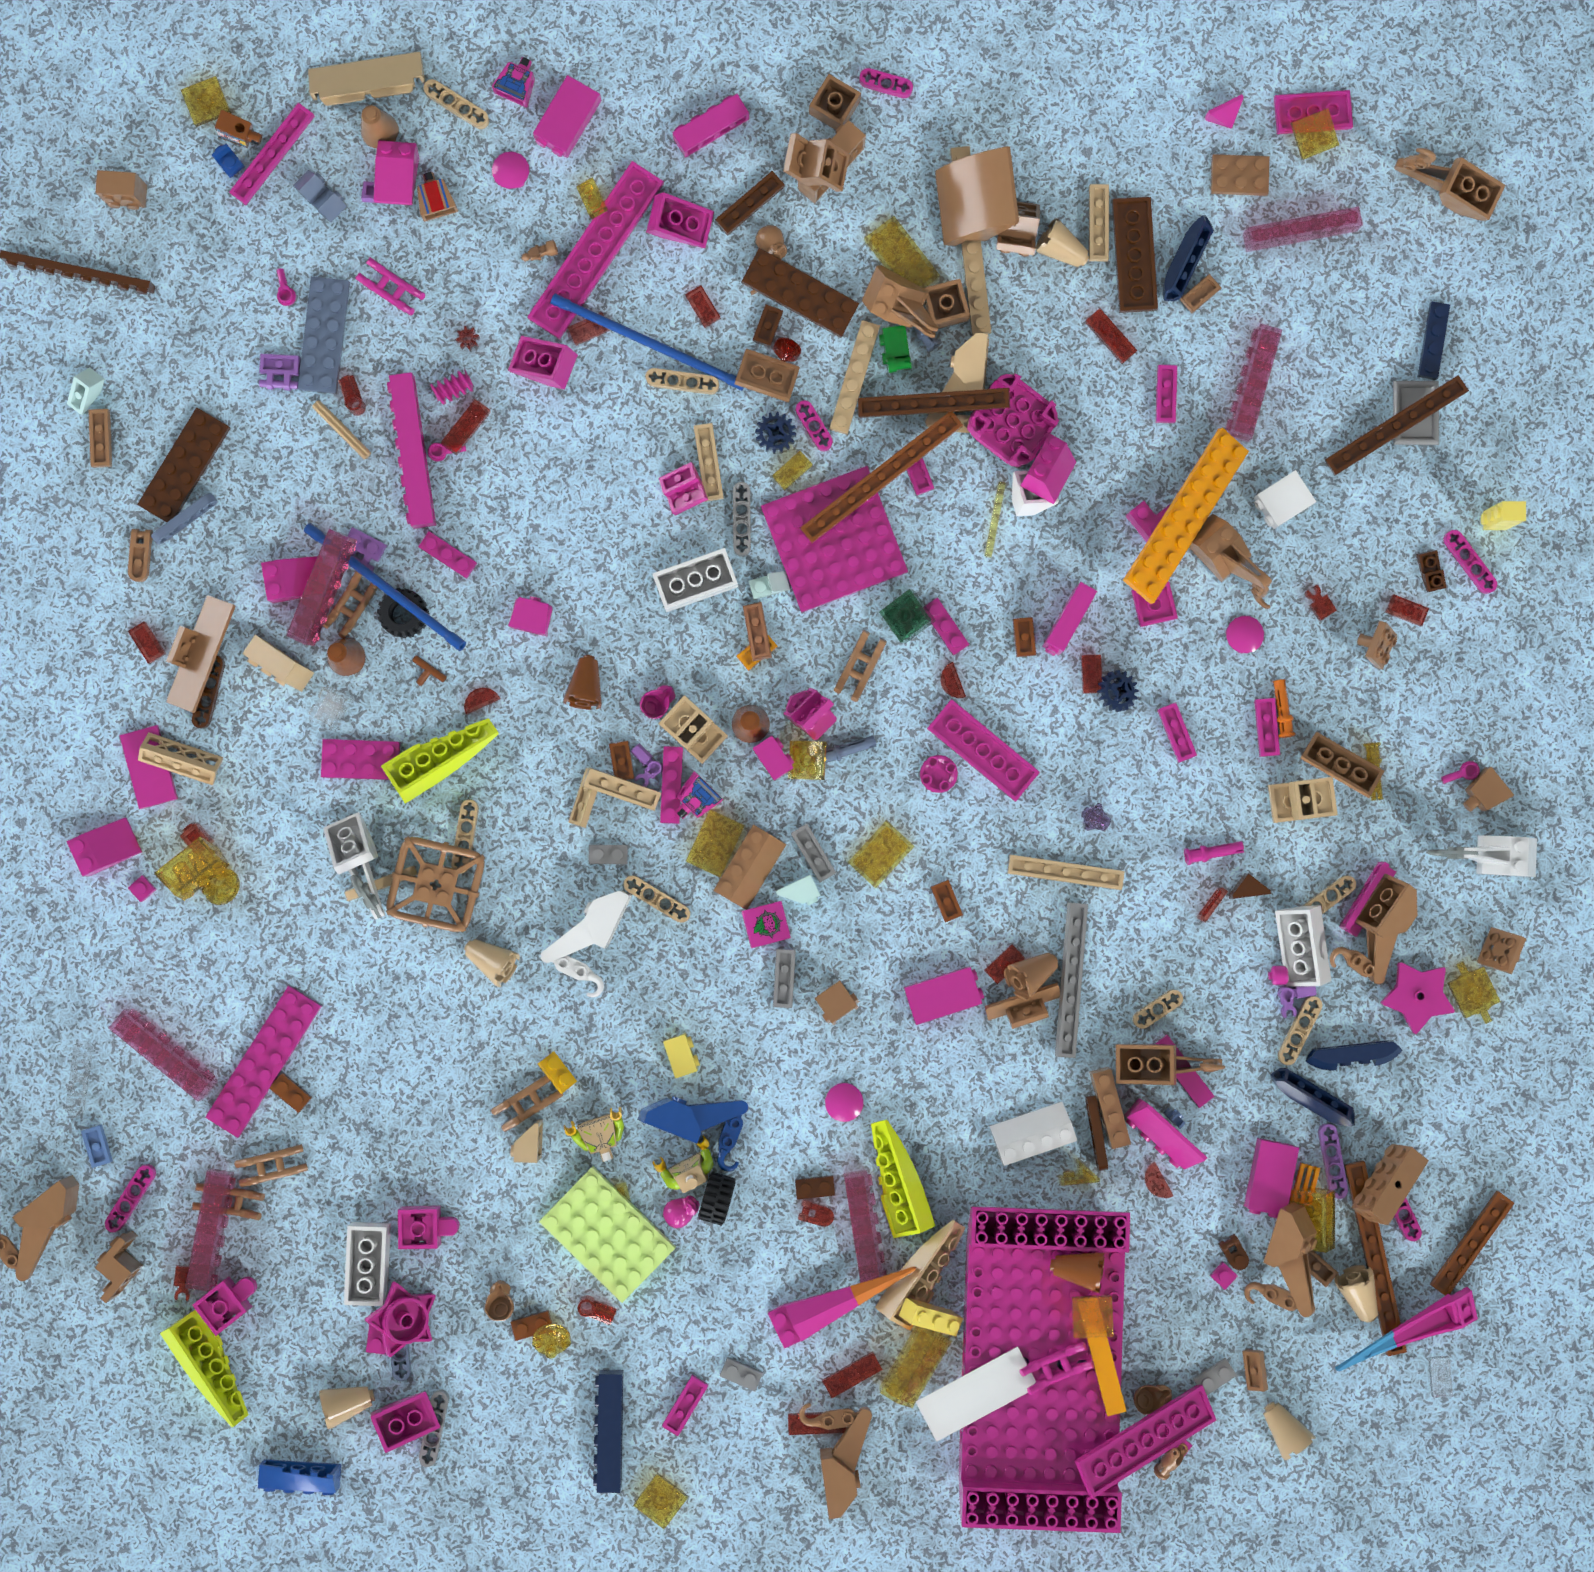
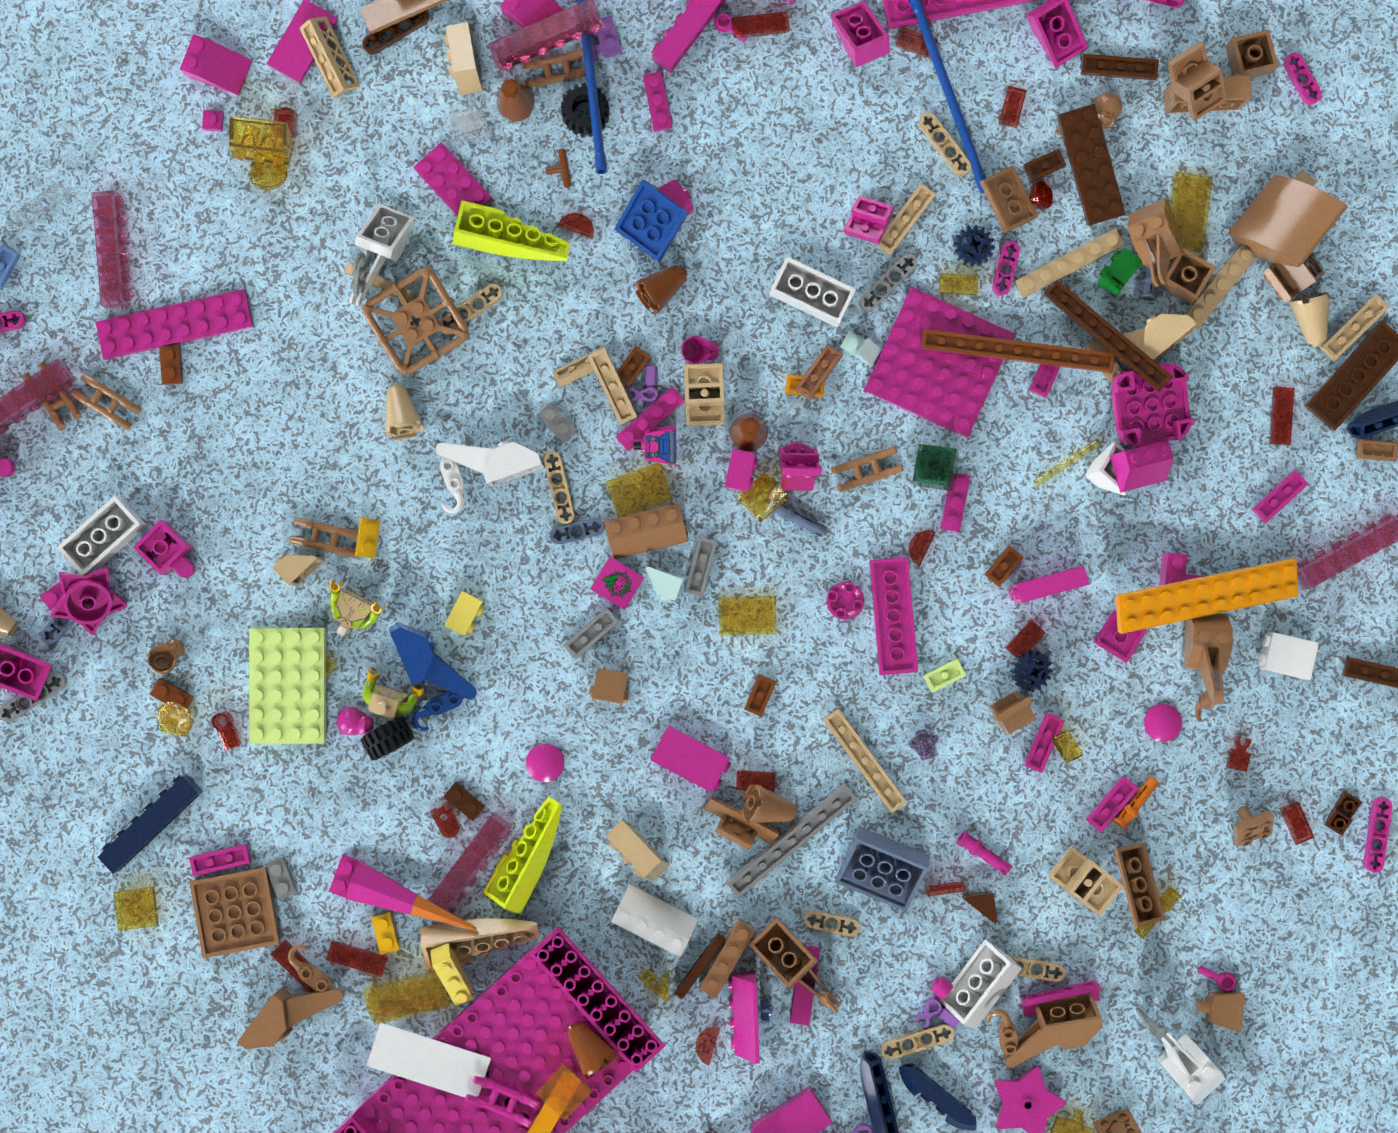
camera: 55 degrees right, 0 degrees up
(530, 644) = (651, 220): none -> blue plate
(689, 926) = (589, 524): none -> sand blue beam
(733, 1431) = (234, 912): none -> medium nougat plate
(854, 1336) = (385, 933): none -> yellow plate
(971, 1098) = (636, 851): none -> tan wedge
(1060, 756) = (944, 675): none -> yellowish green plate
(1134, 733) = (1012, 712): none -> medium nougat plate
(1155, 934) = (883, 868): none -> sand blue slope
(1195, 718) = (1067, 746): none -> clear yellow slope

